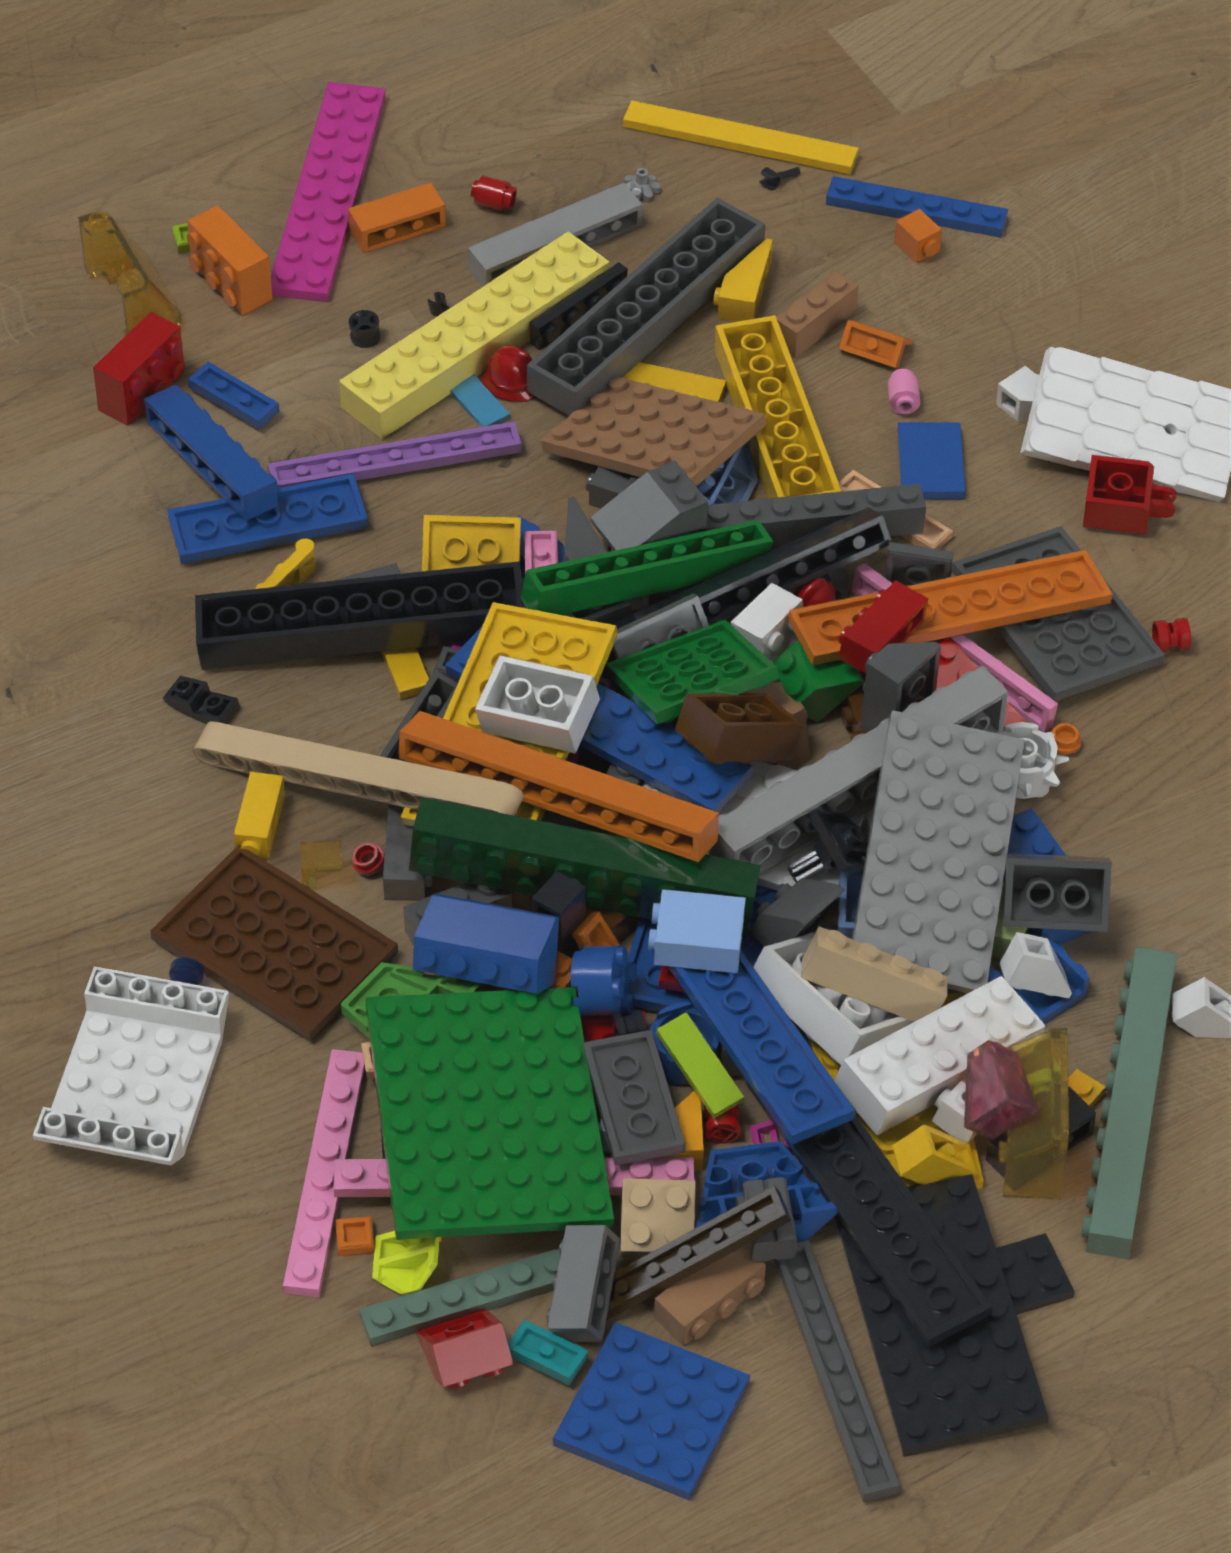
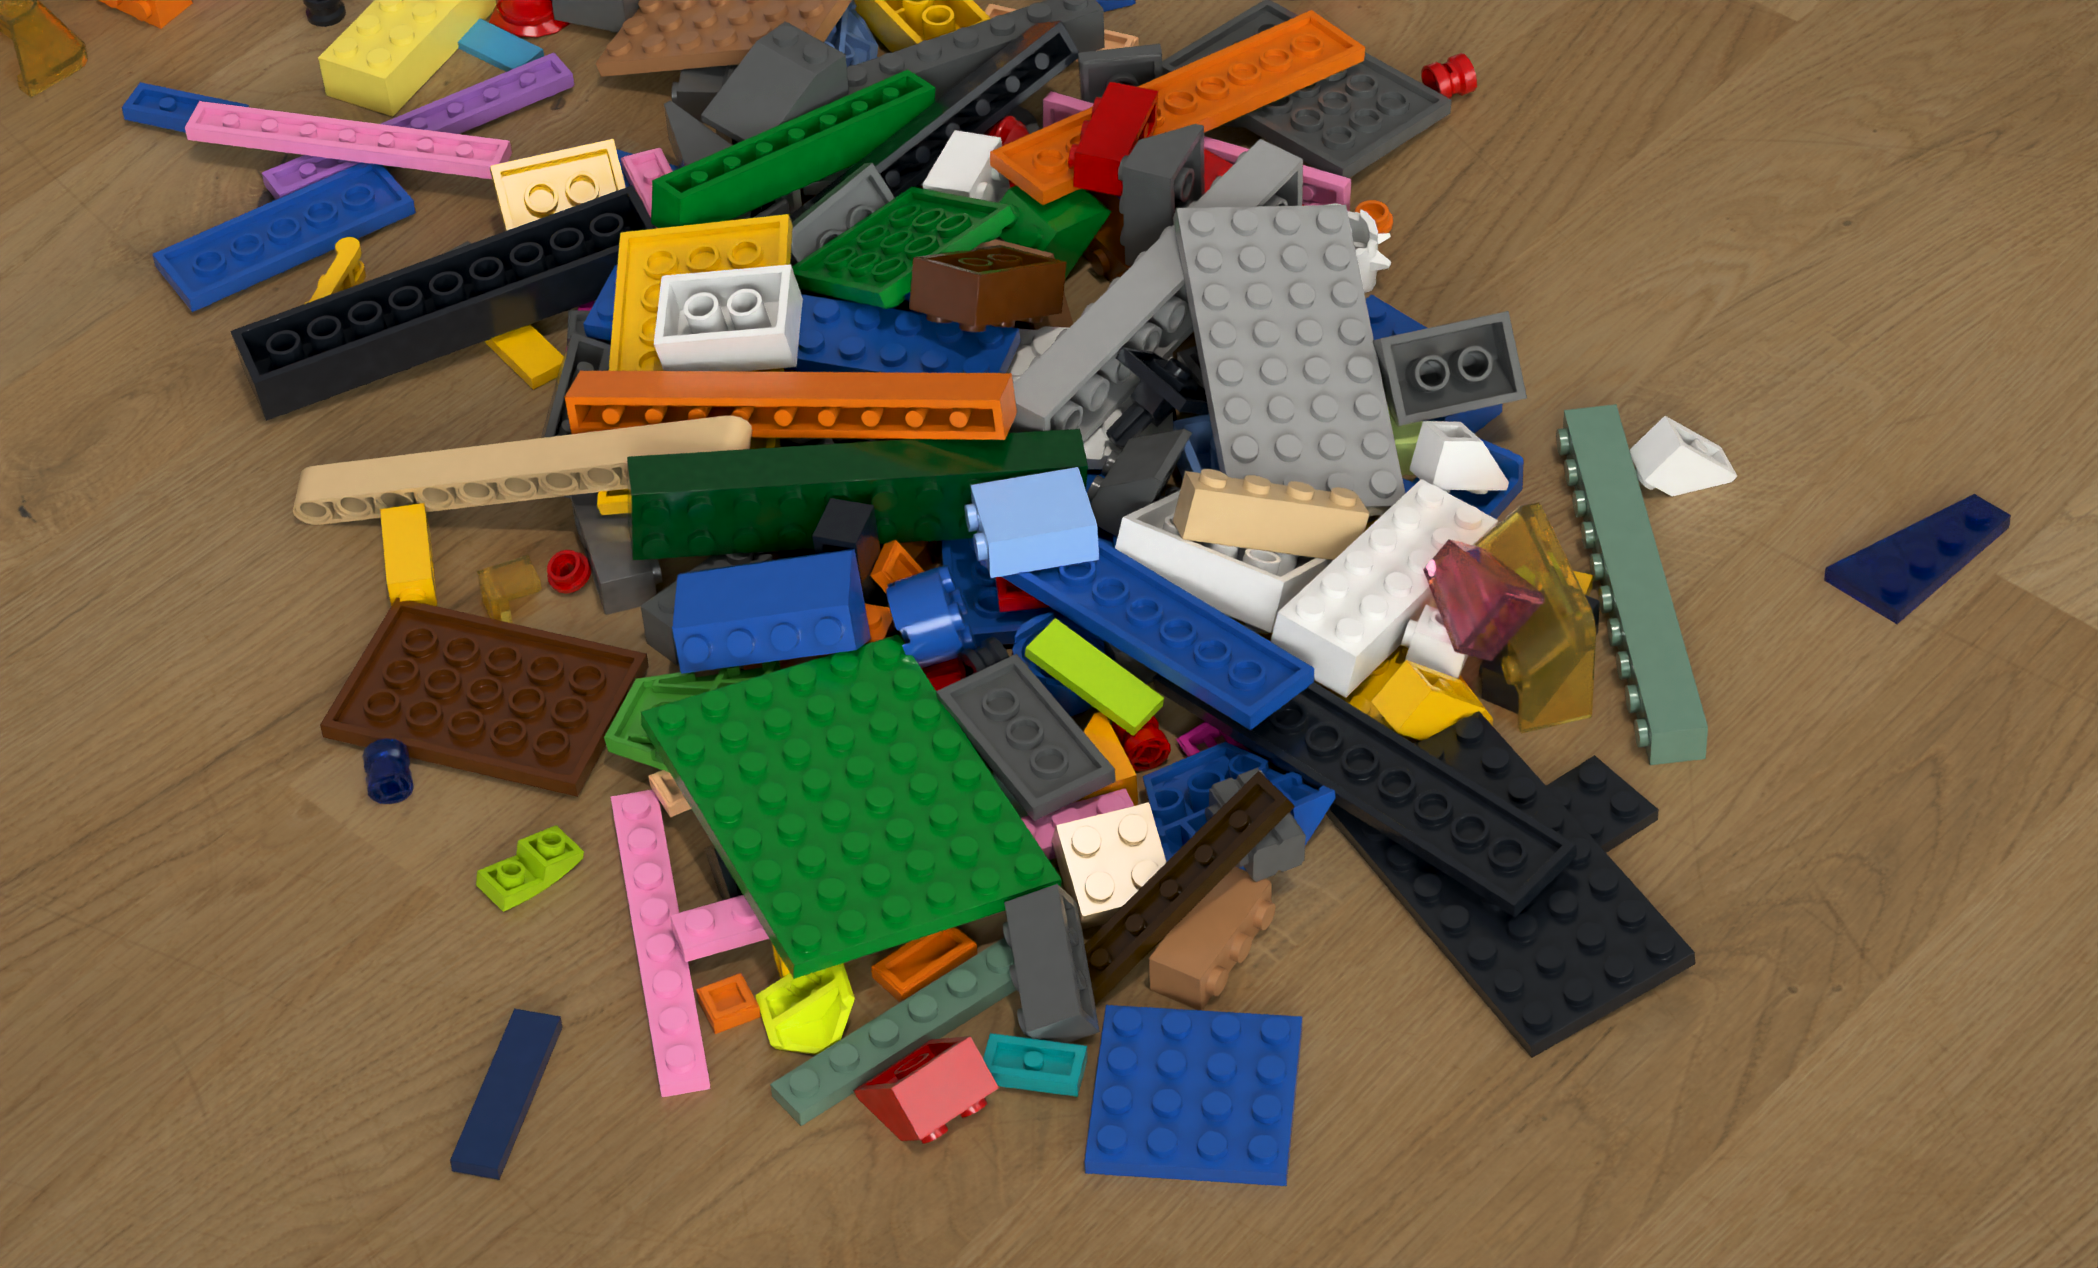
camera: 15 degrees left, 5 degrees down
(137, 1067) = (365, 881): white slope -> none
(139, 367) = (56, 107): red brick -> none
(177, 1258) = (506, 1094): none -> dark blue tile
(198, 702) = (272, 456): black slope -> none
(212, 452) = (185, 176): blue brick -> none
(263, 1086) = (535, 867): none -> lime slope
(337, 456) = (346, 140): none -> bright pink plate
(501, 1249) = (923, 962): none -> orange tile
(837, 1375) = (1412, 986): dark grey plate -> none

